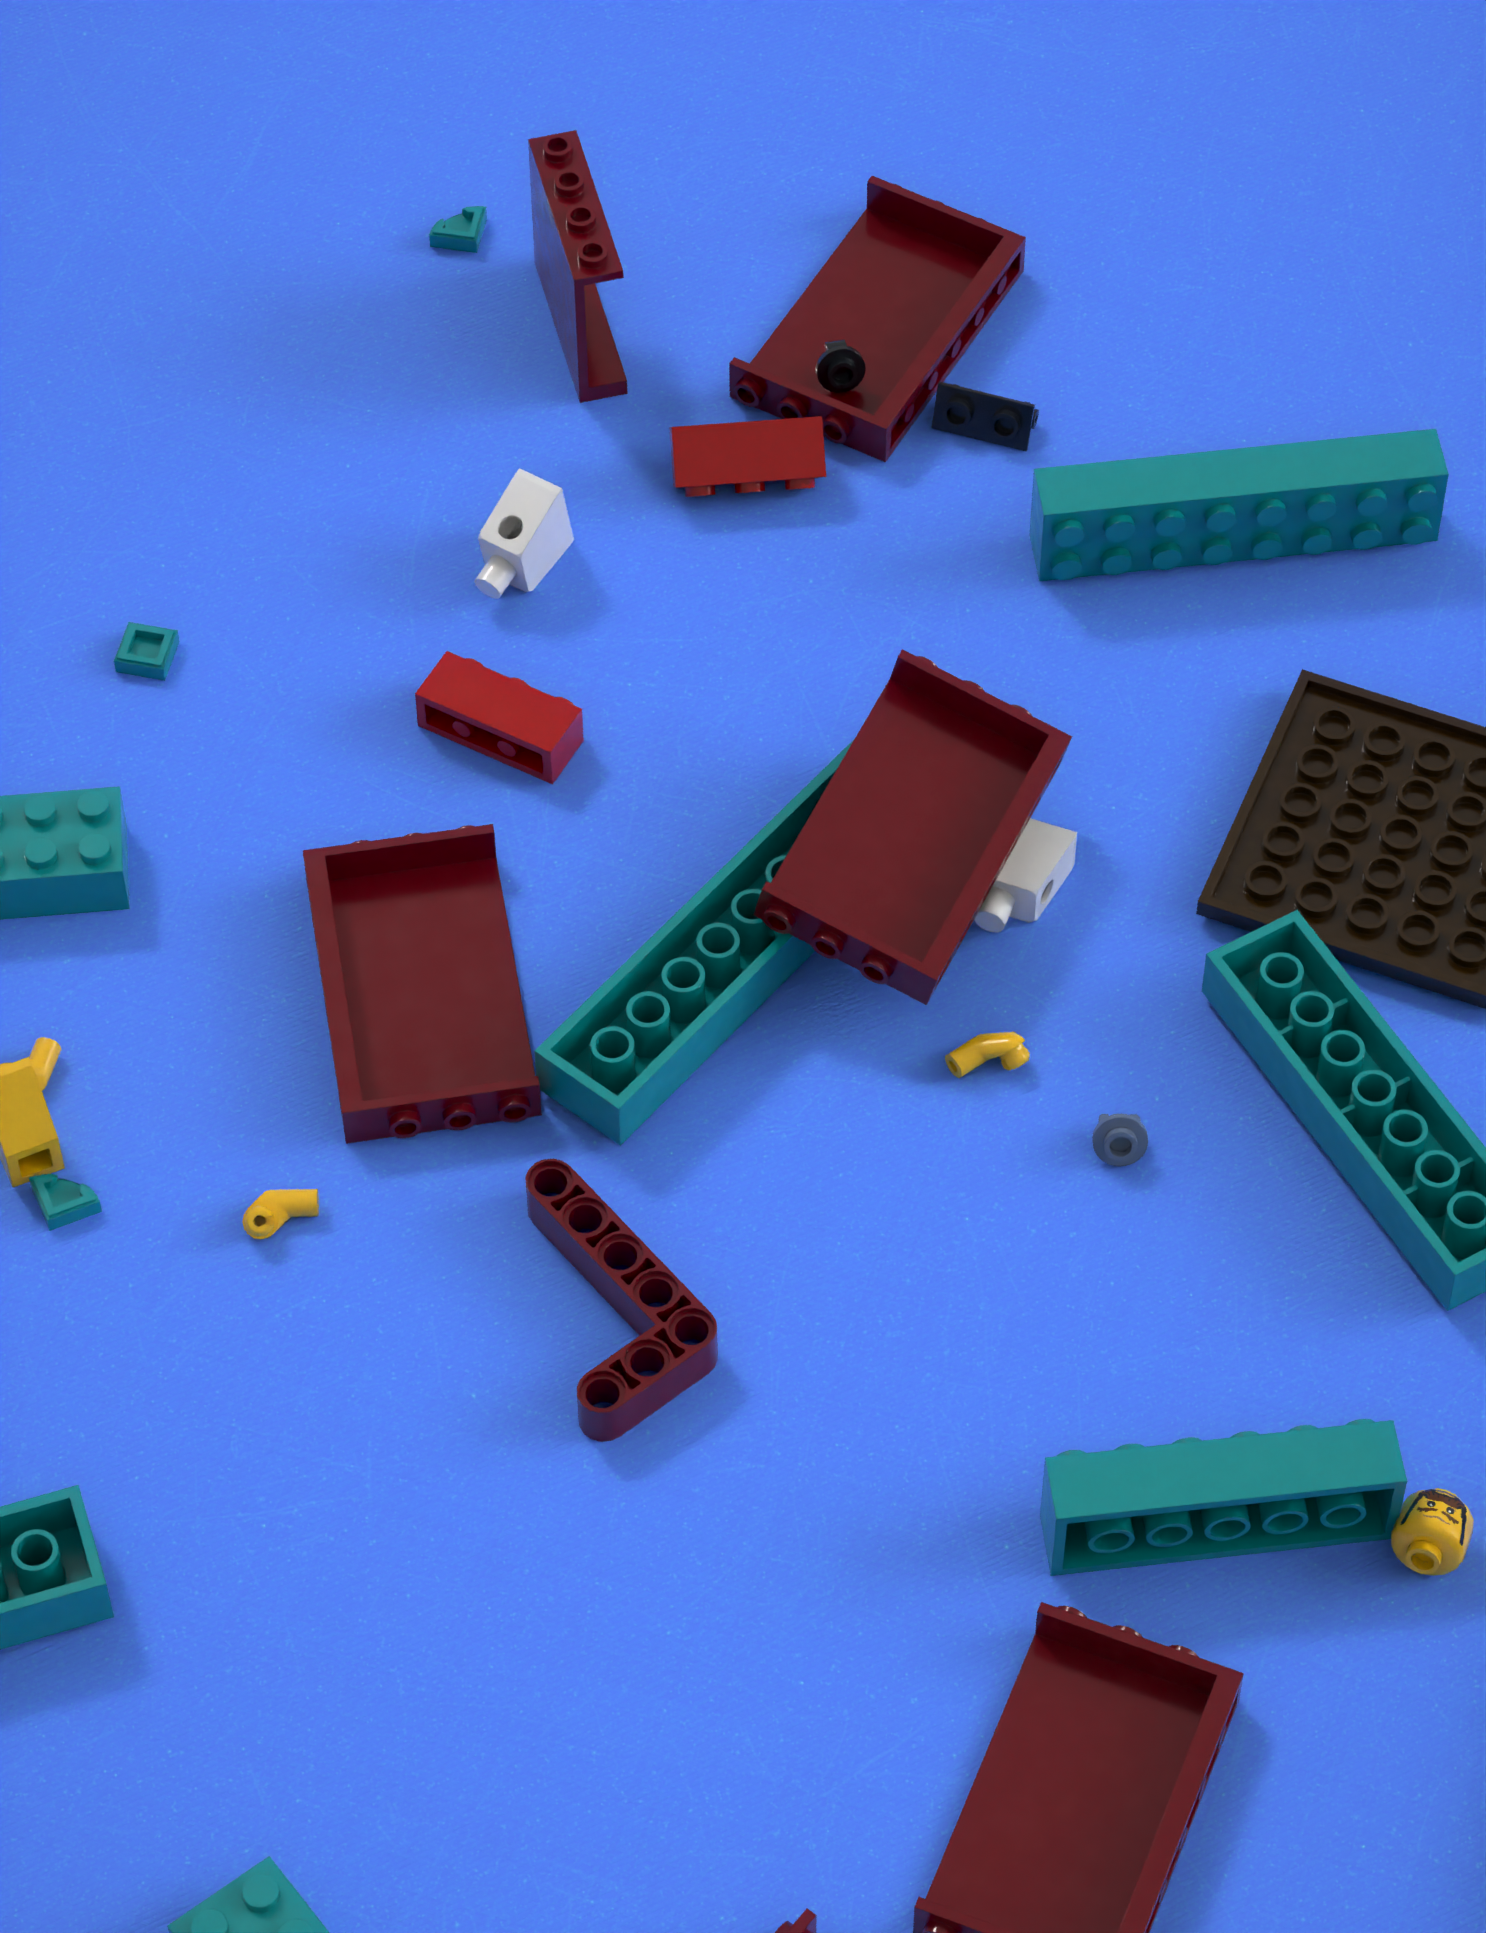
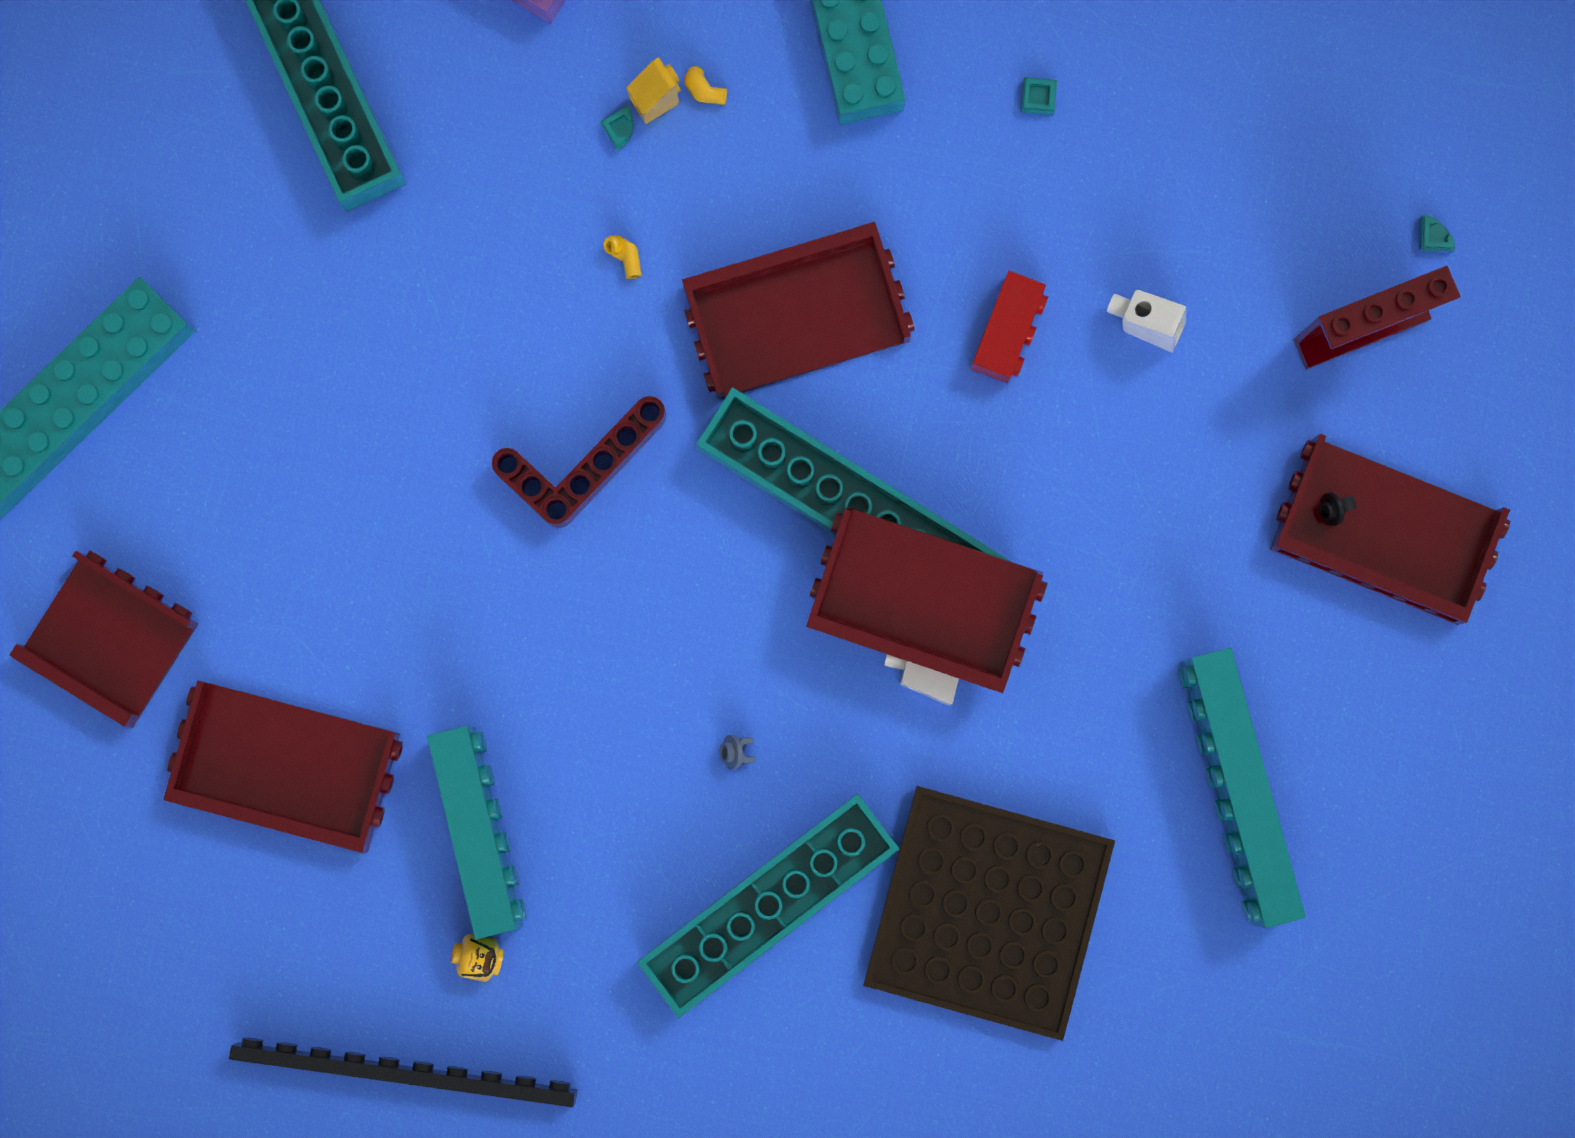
camera: 80 degrees right, 30 degrees up
(748, 455) = (1247, 455): red brick -> none
(984, 416) = (1315, 595): black hinge -> none
(986, 1046) = (795, 666): yellow arm -> none

